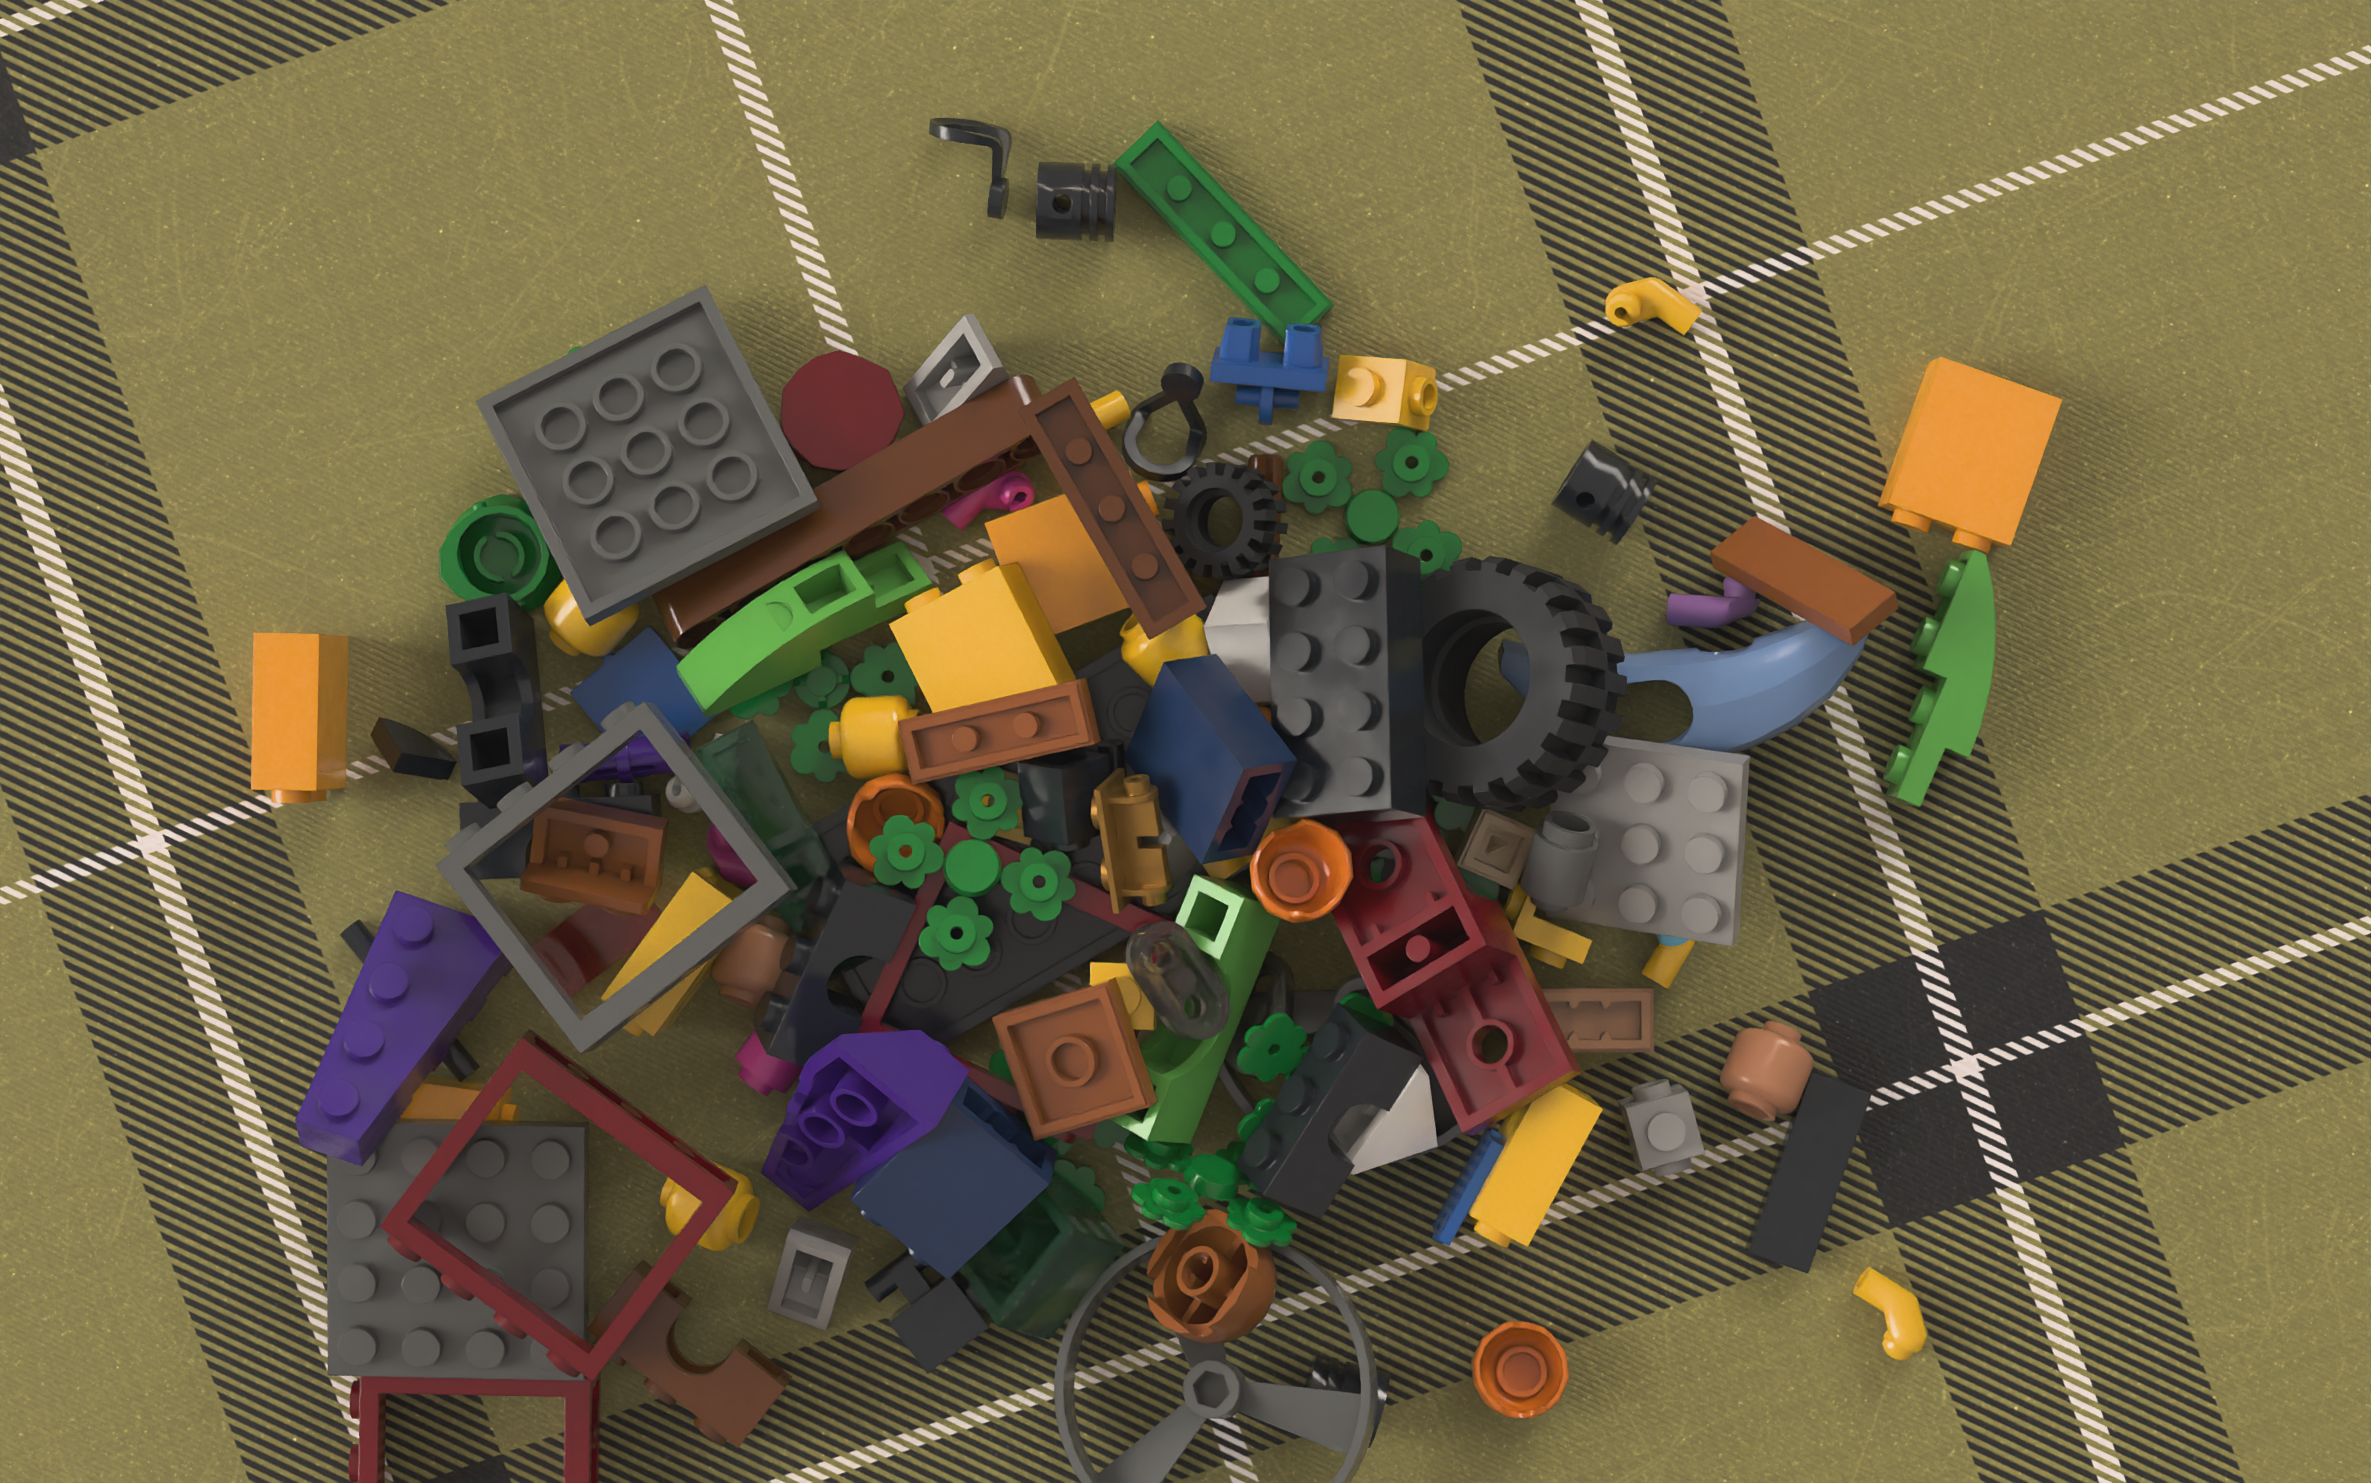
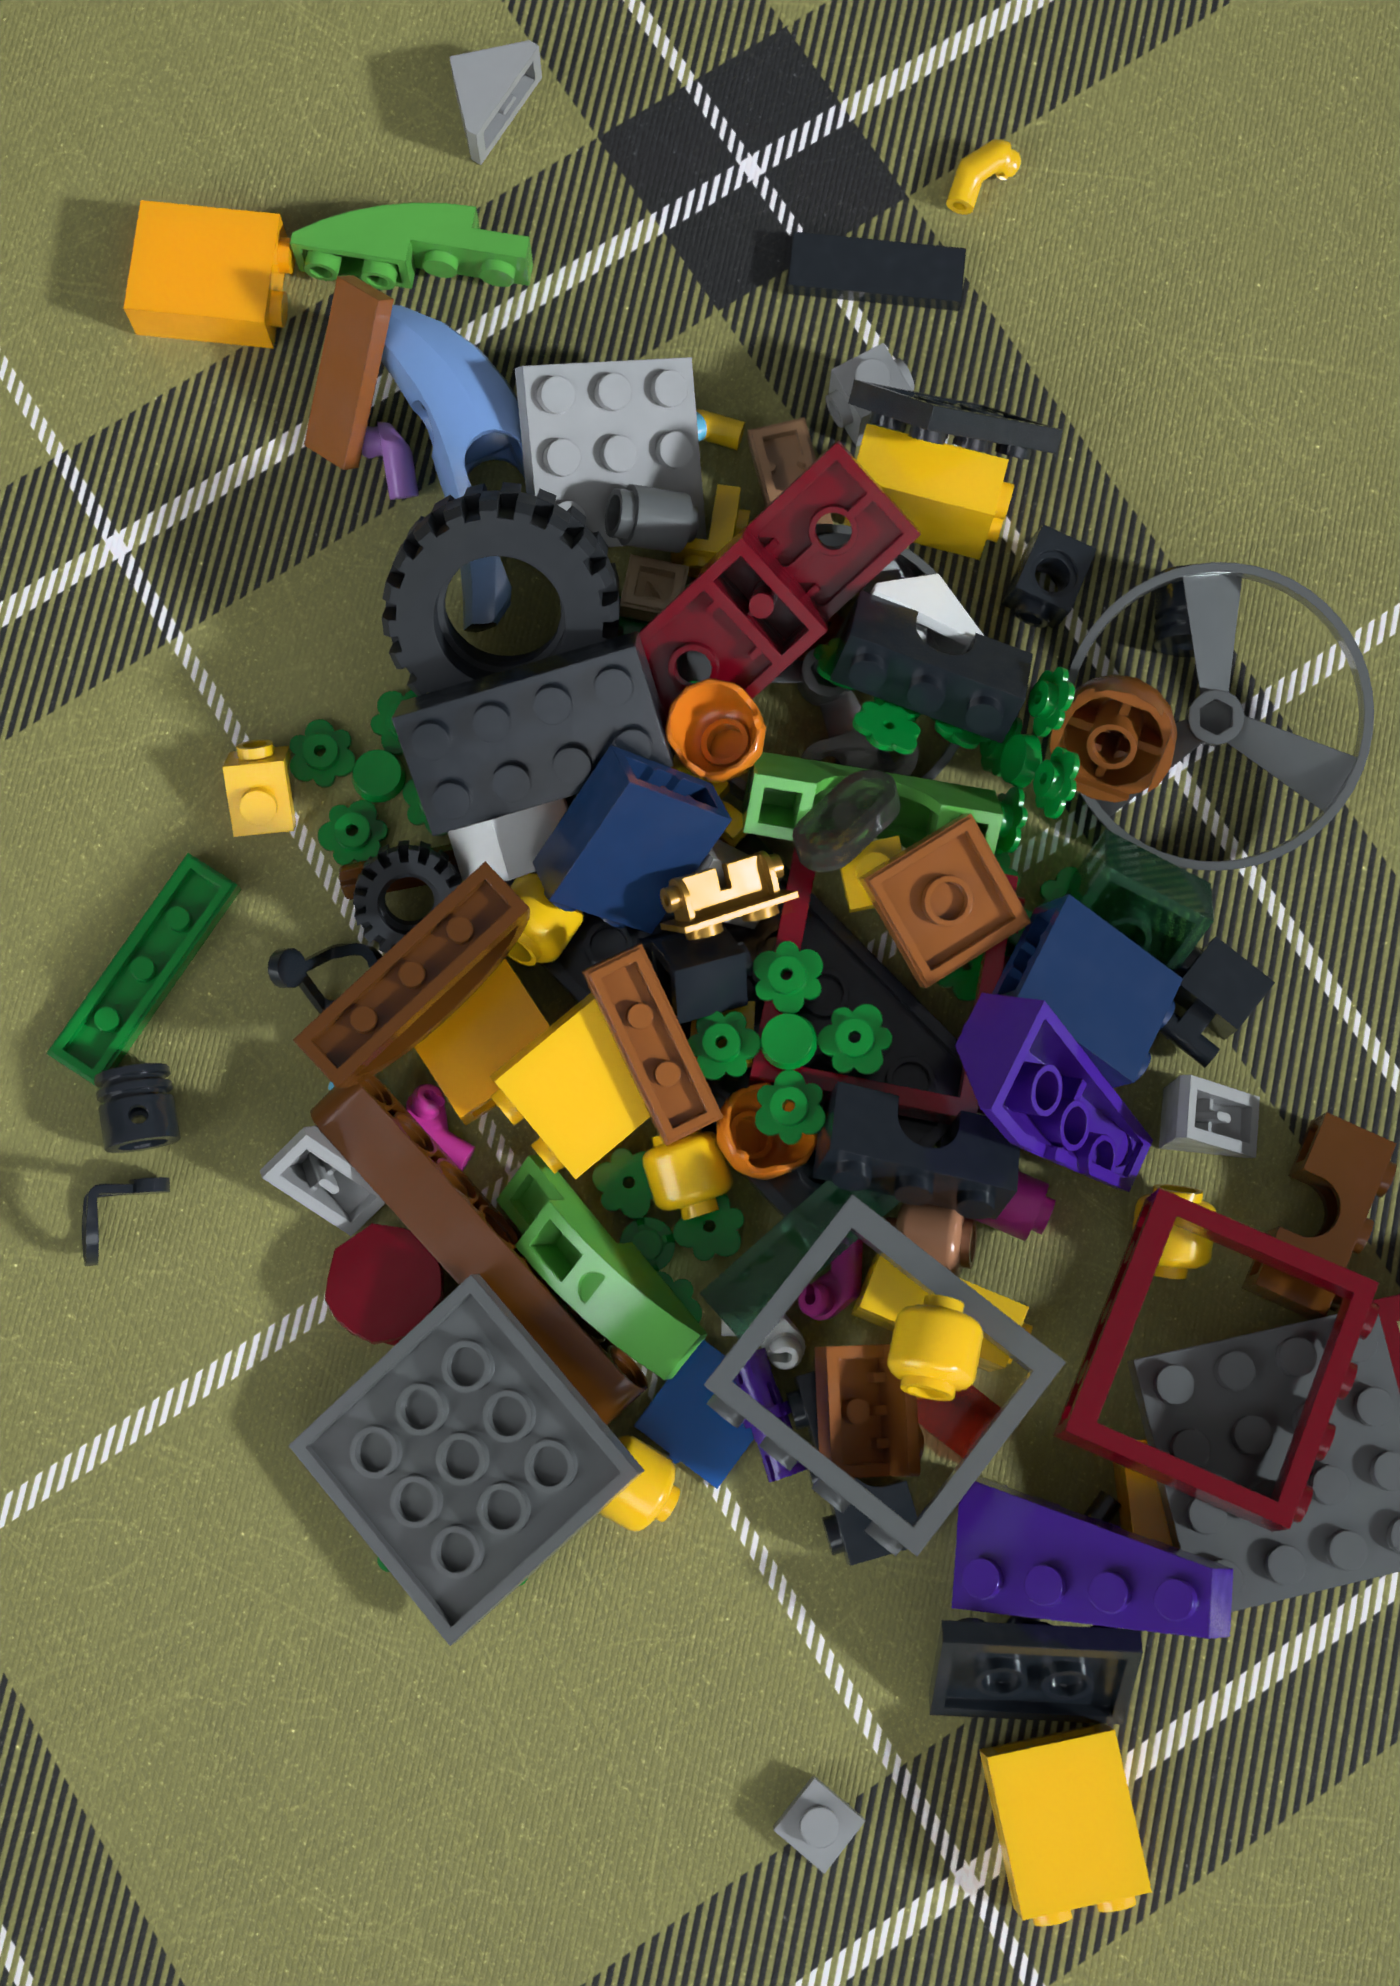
camera: 100 degrees left, 10 degrees down
(178, 948) = (1065, 1824): none -> yellow brick
(227, 714) = (818, 1824): none -> light grey plate
(299, 715) = (803, 1750): light orange brick -> none
(320, 952) = (1034, 1671): none -> black plate
(411, 751) = (811, 1632): black tile -> none
(497, 657) = (713, 1556): black arch -> none
(498, 551) = (599, 1587): green hat -> none
(618, 930) = (935, 1348): none -> yellow head
(1297, 368) = (257, 919): blue hips -> none
(1418, 1288) = (1064, 561): none -> black brick
(1467, 1186) = (969, 543): blue piece -> none
(1520, 1370) = (1120, 465): orange hair -> none
(1593, 1204) = (970, 423): none -> black plate
(1603, 492) = (309, 571): black piece -> none
(1650, 299) = (126, 575): yellow arm -> none
(1766, 1071) = (796, 319): nougat head -> none
(2113, 803) = (492, 90): none -> light grey slope

